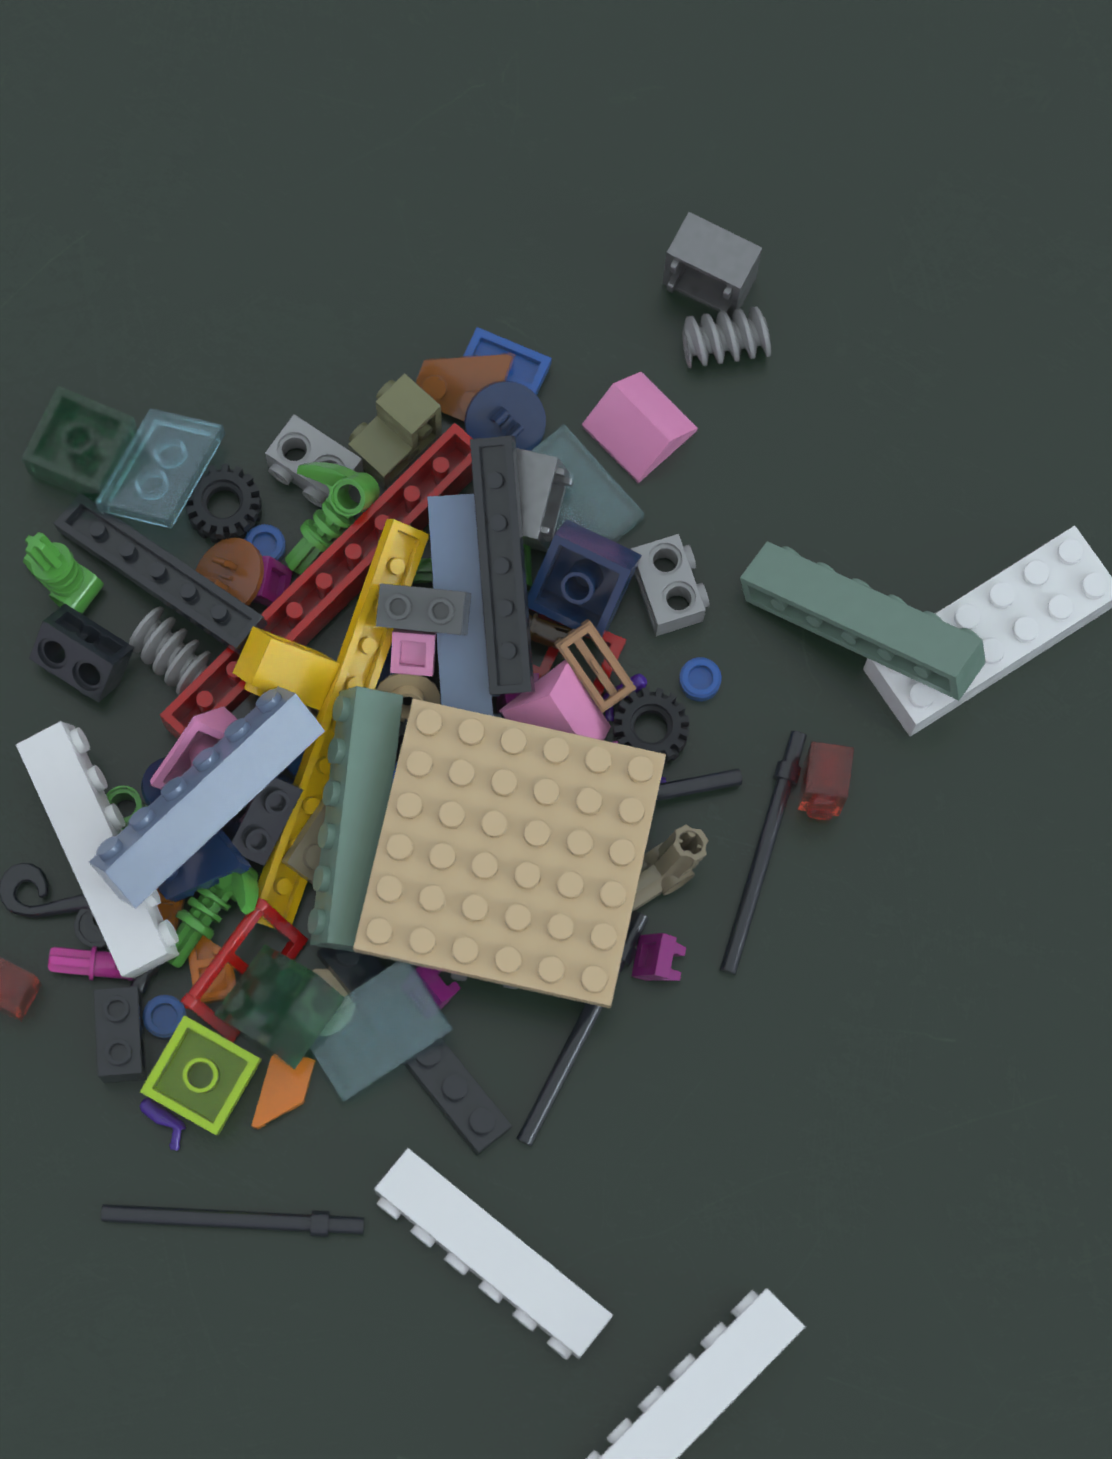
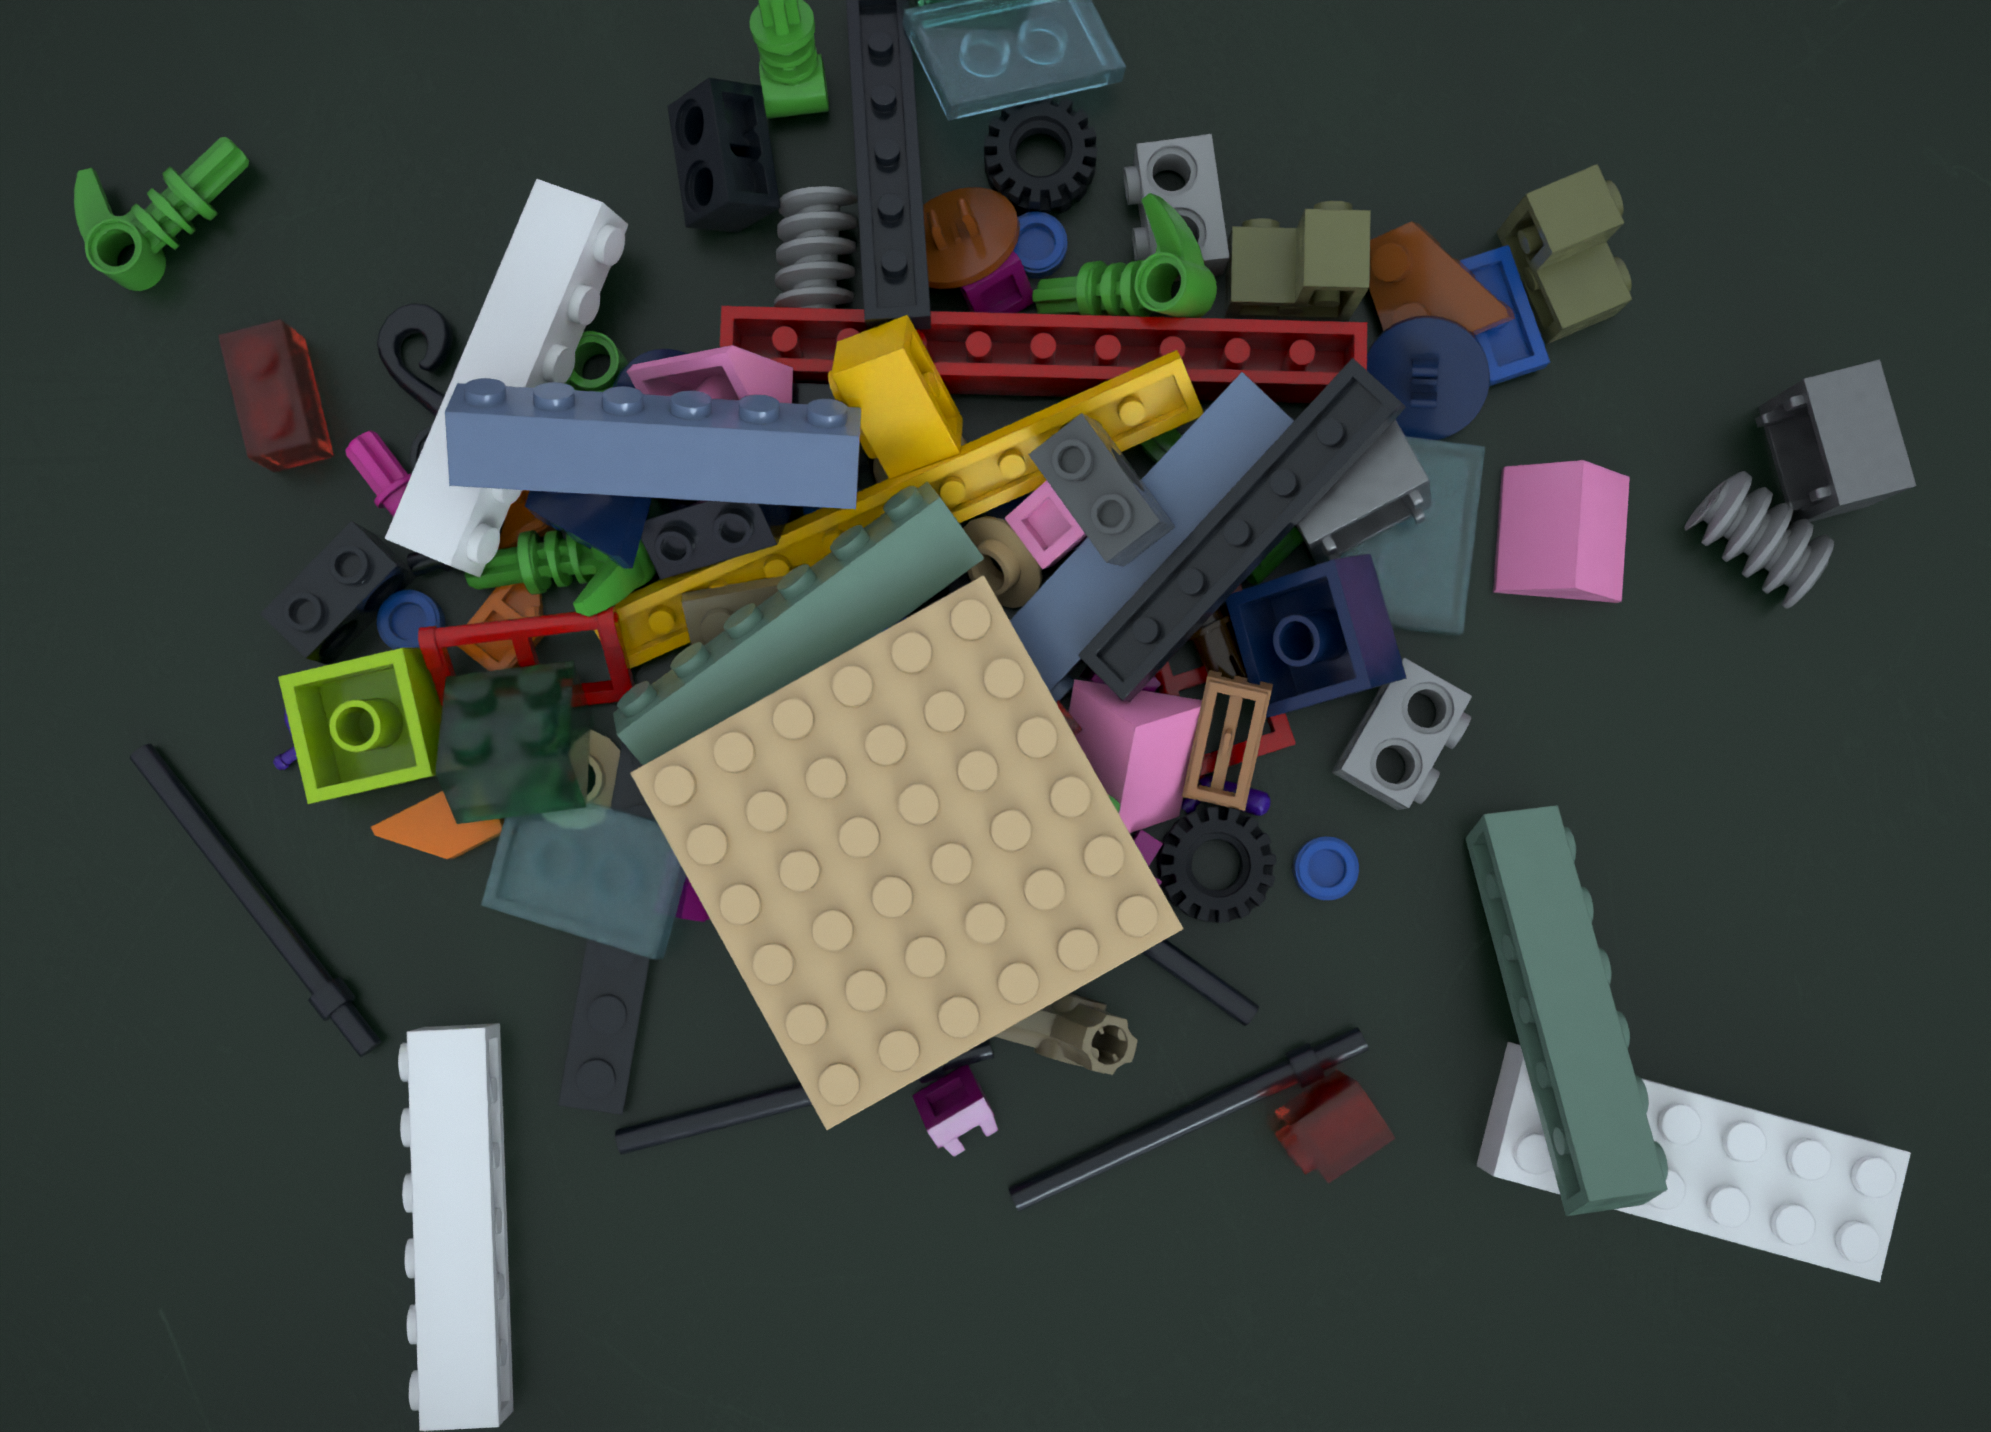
camera: 55 degrees right, 10 degrees up
(506, 306) = (1564, 252): none -> olive brick

